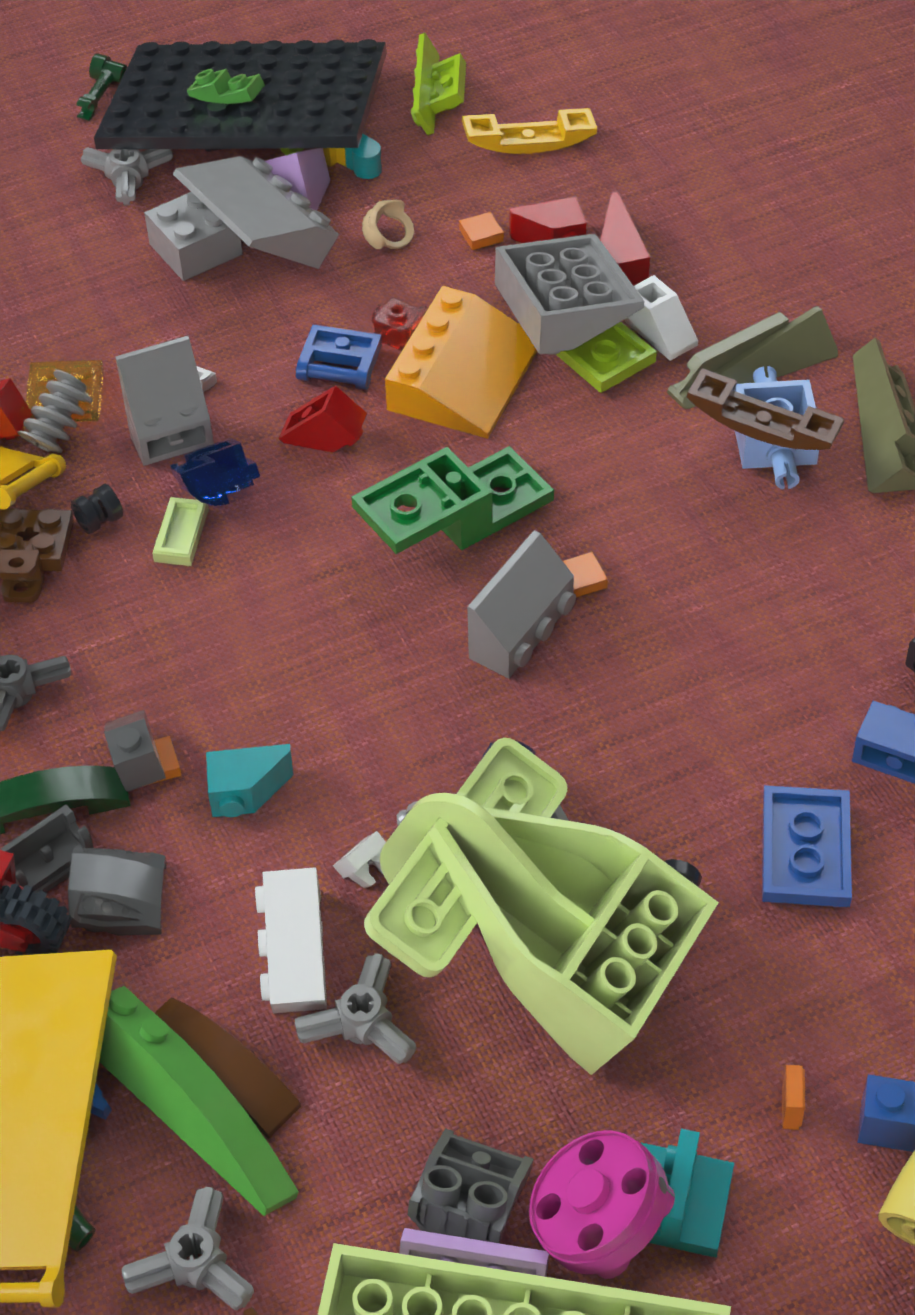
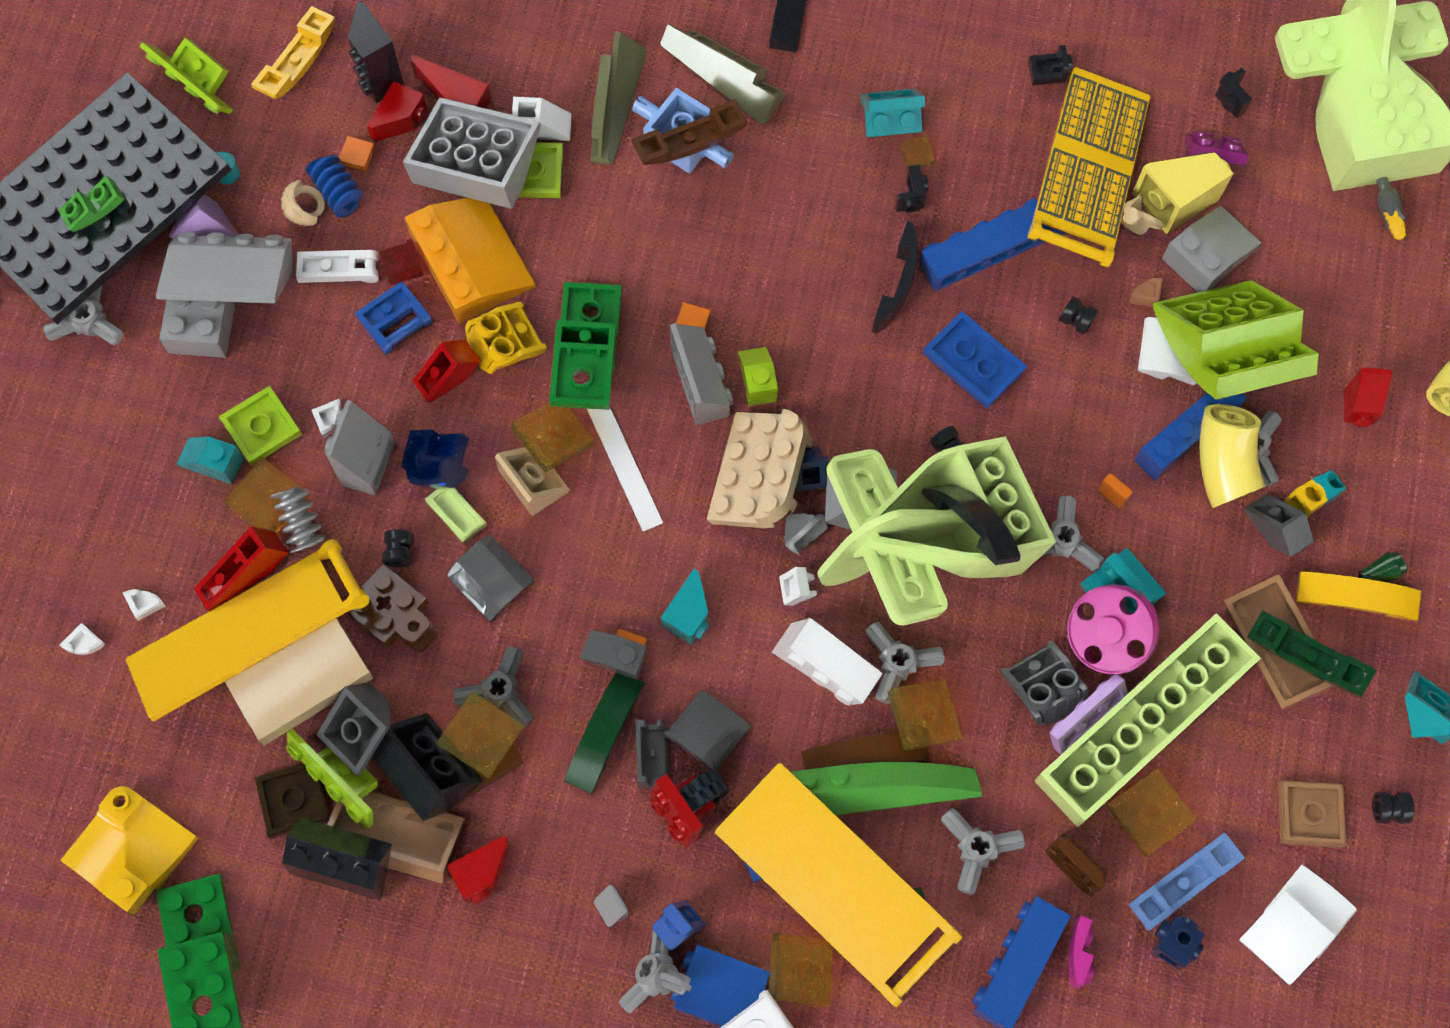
camera: 55 degrees left, 20 degrees up
(68, 331) = (211, 458): none -> teal slope
(129, 330) = (260, 425): none -> lime plate
(132, 594) = (489, 577): none -> dark grey slope
(269, 556) = (529, 481): none -> tan slope
(314, 1082) = (924, 715): none -> clear yellow plate
(332, 542) = (552, 435): none -> clear yellow plate
(348, 285) = (337, 266): none -> white plate
(369, 620) = (625, 468): none -> white sticker
(401, 437) = (503, 337): none -> yellow slope
(429, 232) = (335, 184): none -> blue piece
(460, 726) = (759, 470): none -> tan plate
(566, 928) = (994, 535): none -> black slope
(572, 666) = (758, 376): none -> lime slope
(578, 154) = (372, 54): none -> black slope
(688, 1073) = (1067, 528): none -> light grey bush
(777, 726) = (891, 306): none -> black slope

